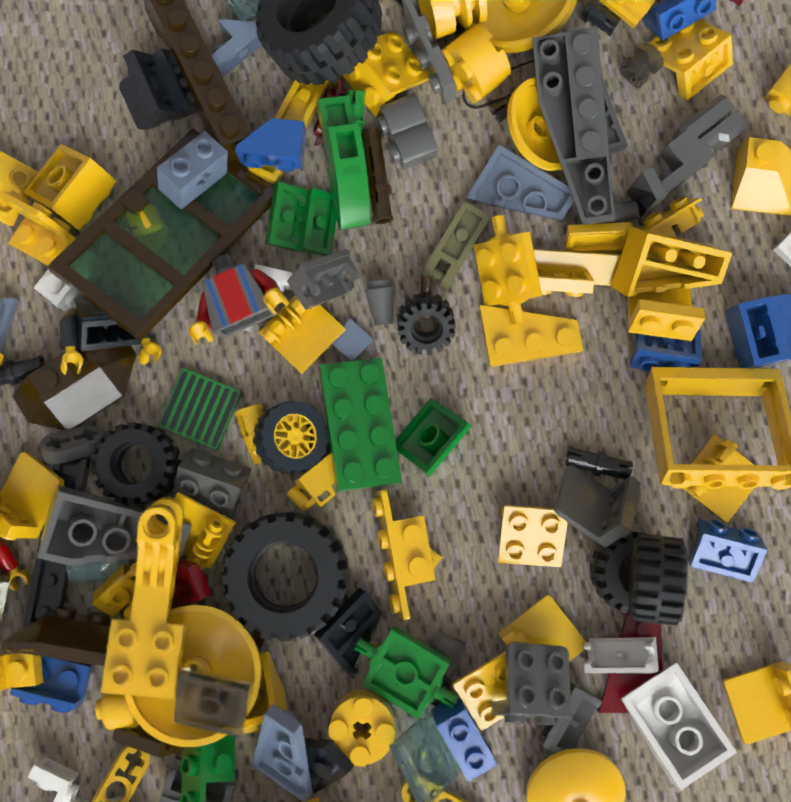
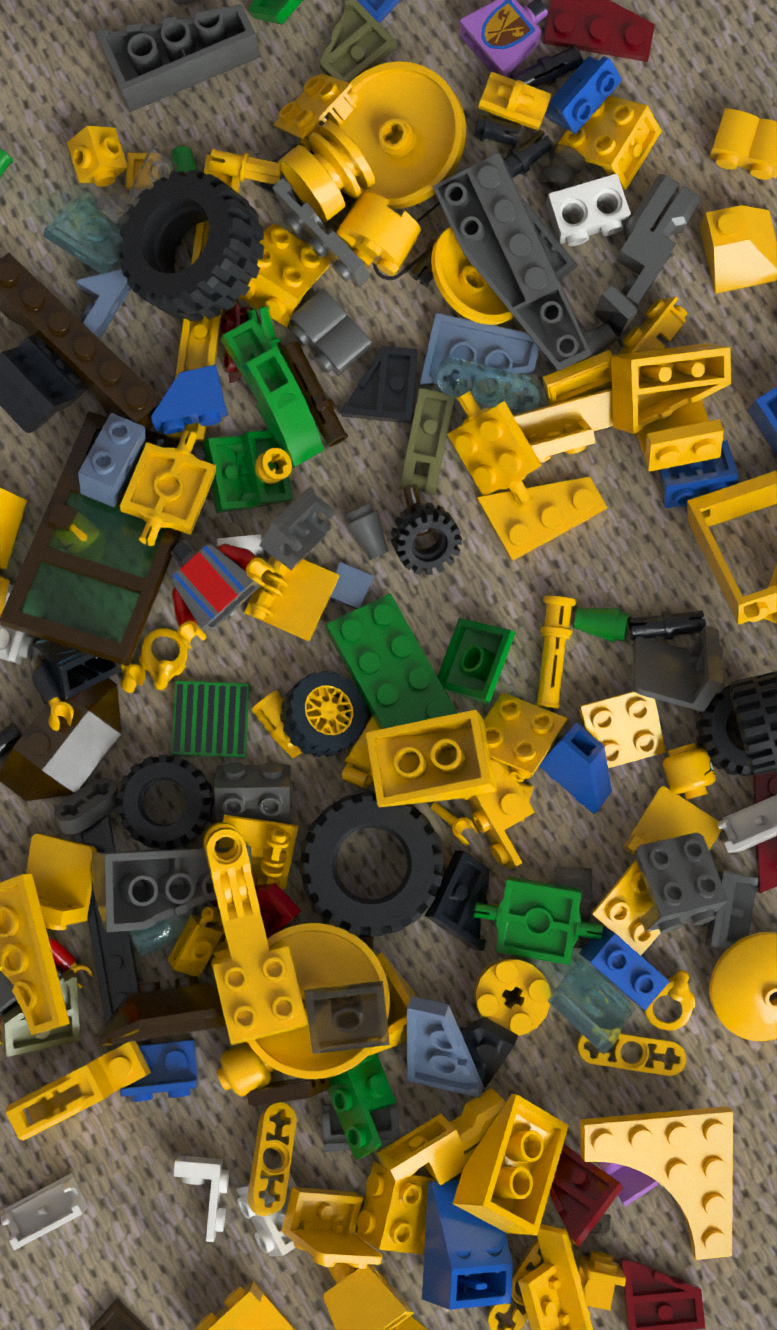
camera: 20 degrees left, 0 degrees up
(173, 356) = (164, 670): none -> yellow piece
(230, 209) = (168, 488): none -> yellow plate
(316, 228) = (274, 455): none -> yellow bush
(363, 508) = (431, 760): none -> yellow slope
(368, 565) = (457, 825): none -> yellow hand
(438, 191) = (386, 387): none -> black wing
(443, 511) = (521, 734): none -> yellow hinge
(486, 555) = (580, 767): none -> blue slope
(502, 775) = (678, 990): none -> yellow piece
(504, 438) = (555, 634): none -> yellow pin
(519, 204) = (480, 371): none -> clear light blue beam
(547, 443) = (603, 623): none -> green cone
(575, 590) = (689, 771): none -> yellow head
(615, 45) = (521, 158): none -> black pin
(649, 97) = (583, 202): none -> white brick

